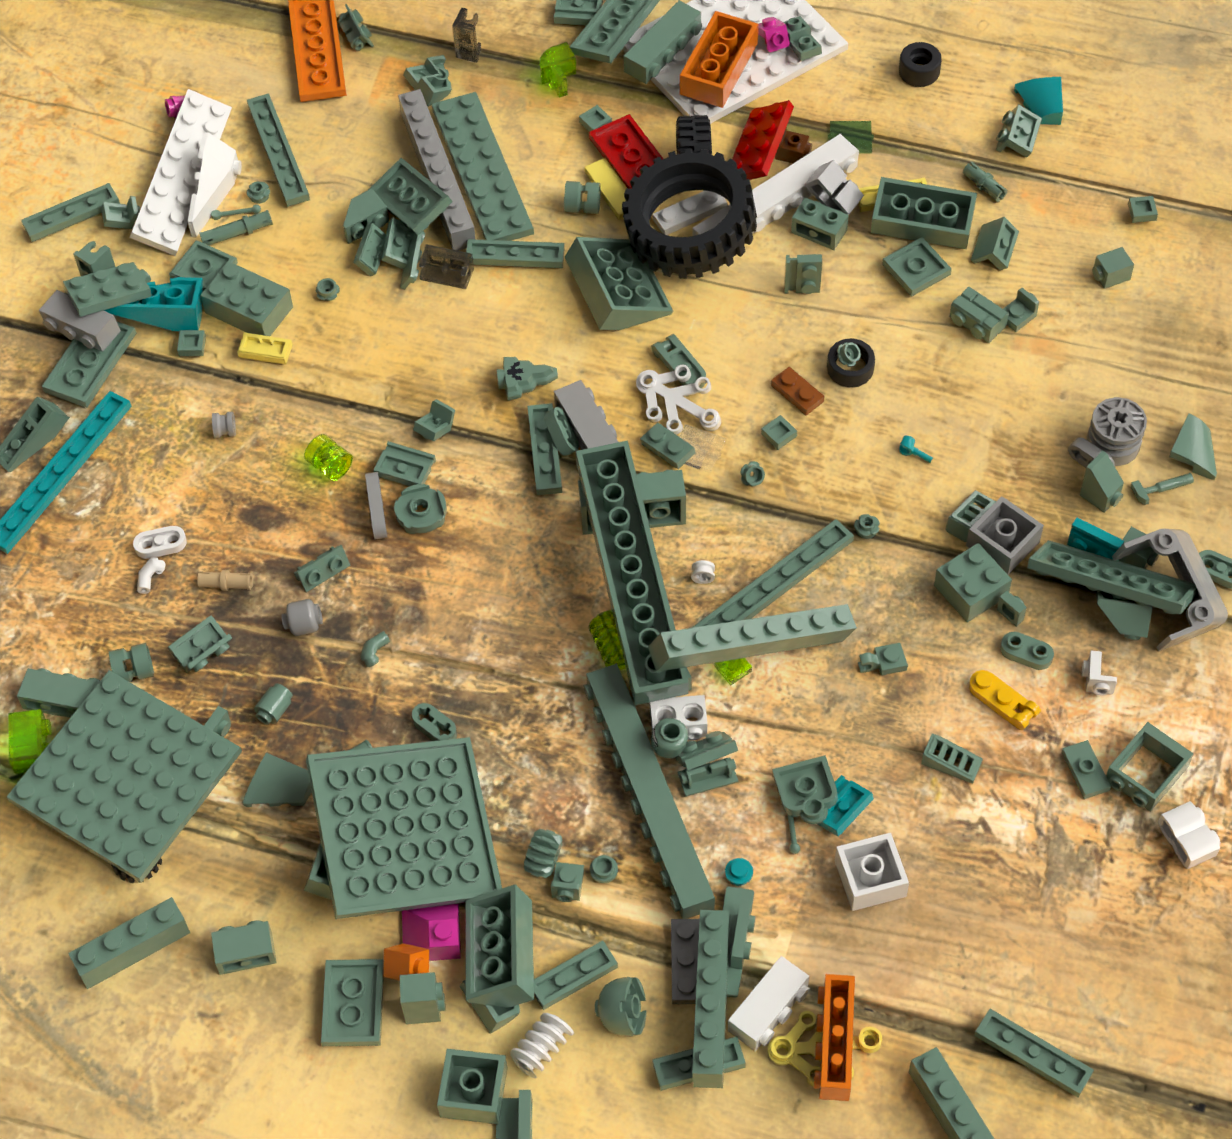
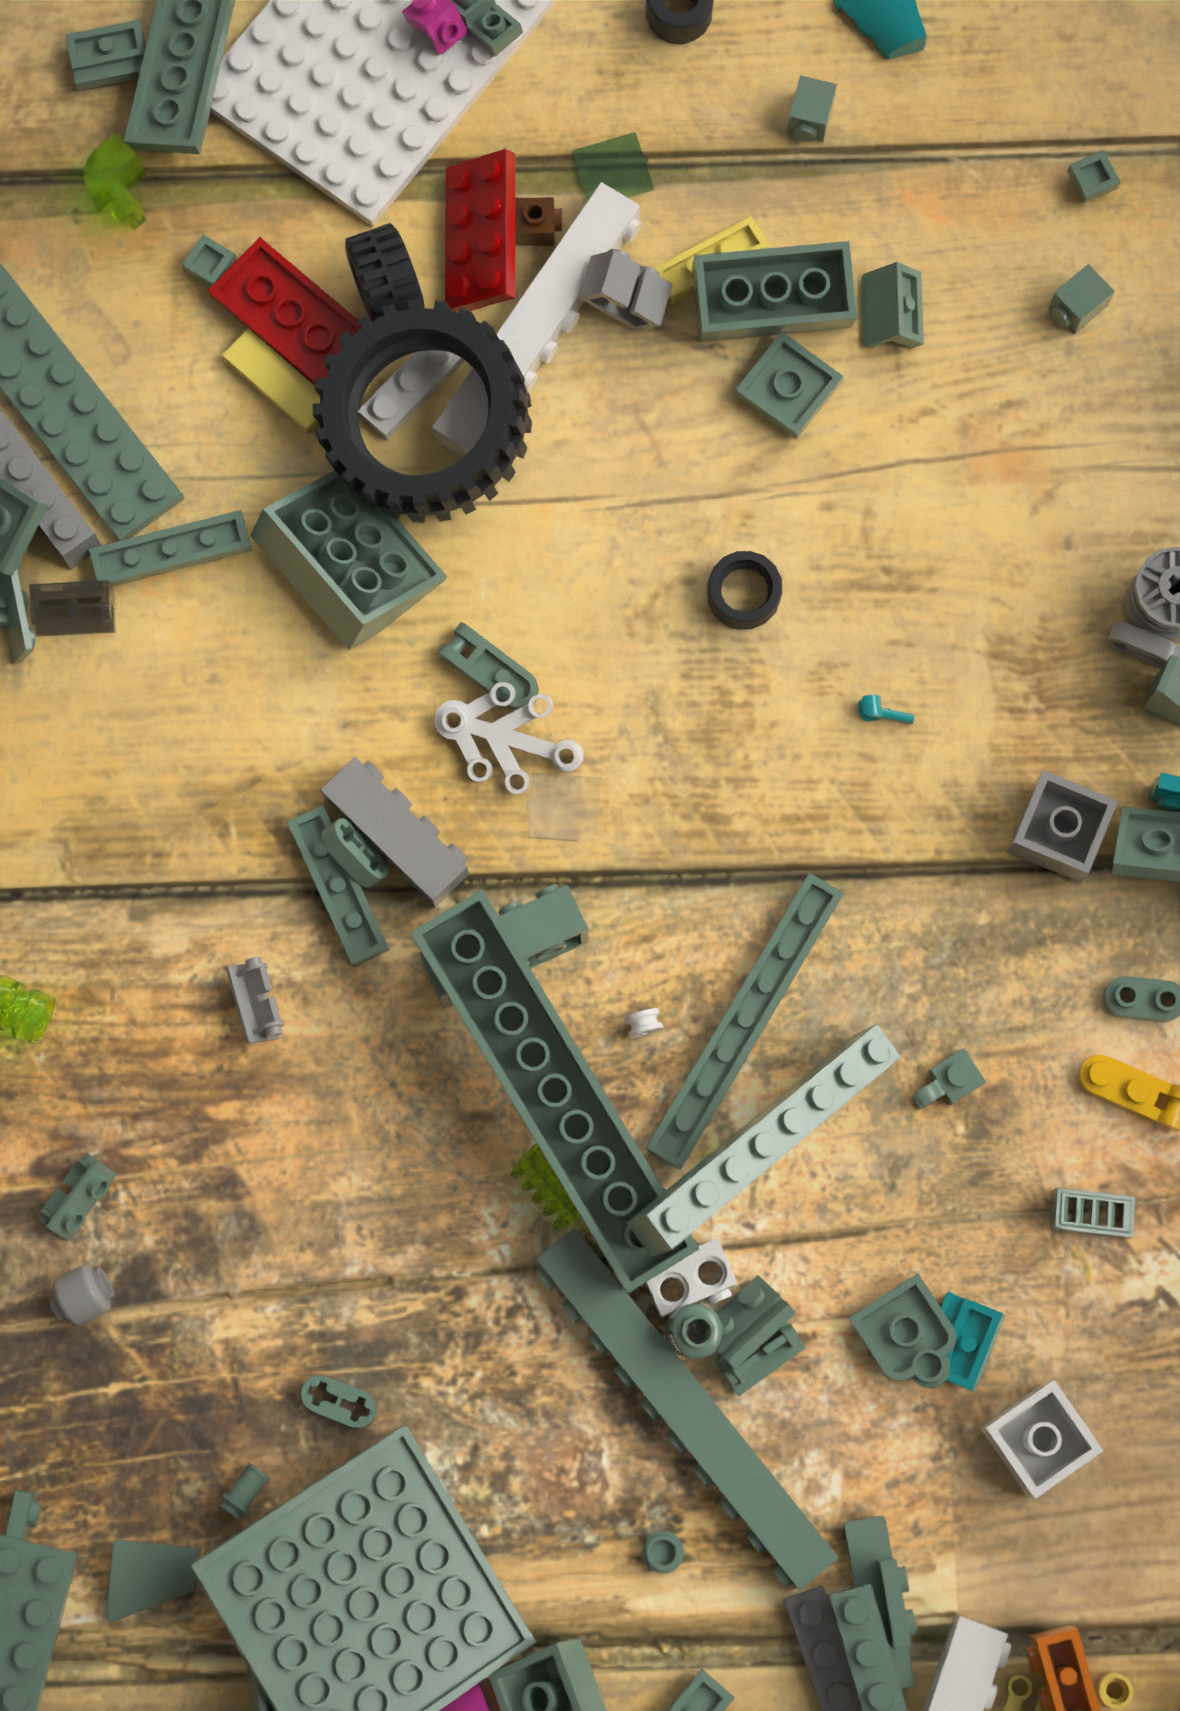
camera: 20 degrees left, 20 degrees up
(273, 704) = (92, 1452): sand green brick -> none
(370, 648) = (200, 1309): sand green arm -> none
(376, 505) = (120, 1066): light grey beam -> none
(404, 464) = (137, 982): sand green plate -> none
(424, 521) = (193, 1026): sand green plate -> none
(436, 422) = (157, 893): sand green bracket -> none
(469, 493) = (256, 1011): none -> light grey hinge
(523, 376) = (260, 769): sand green rock -> none
(543, 853) = (572, 1566): sand green gear -> none
(567, 882) = (618, 1589): sand green bracket -> none
(573, 197) = (226, 420): sand green wheel -> none
(662, 42) = (269, 89): sand green brick -> none
(668, 445) = (519, 821): sand green plate -> none
(719, 59) = (370, 100): orange brick -> none
(739, 871) = (853, 1492): teal plate -> none
(757, 477) = (662, 832): sand green plate -> none
(779, 432) = (677, 746): sand green plate -> none
(794, 847) = (917, 1425): sand green hinge -> none
(797, 391) = (679, 661): dark orange plate -> none
(803, 273) = (630, 461): sand green plate -> none
(819, 223) = (619, 352): sand green brick -> none
(848, 354) = (740, 584): sand green plate -> none
(867, 531) = (855, 875): sand green plate -> none
(960, 526) = (991, 821): sand green slope -> none
(972, 582) = (1038, 917): sand green brick -> none
(978, 315) = (907, 447): sand green brick -> none
(981, 132) = (811, 109): none -> sand green brick
(985, 181) = (843, 195): sand green pin -> none
(1012, 608) = (1106, 939): sand green plate -> none
(1019, 131) = (867, 87): sand green bracket -> none
(1022, 309) = (964, 417): sand green bracket -> none

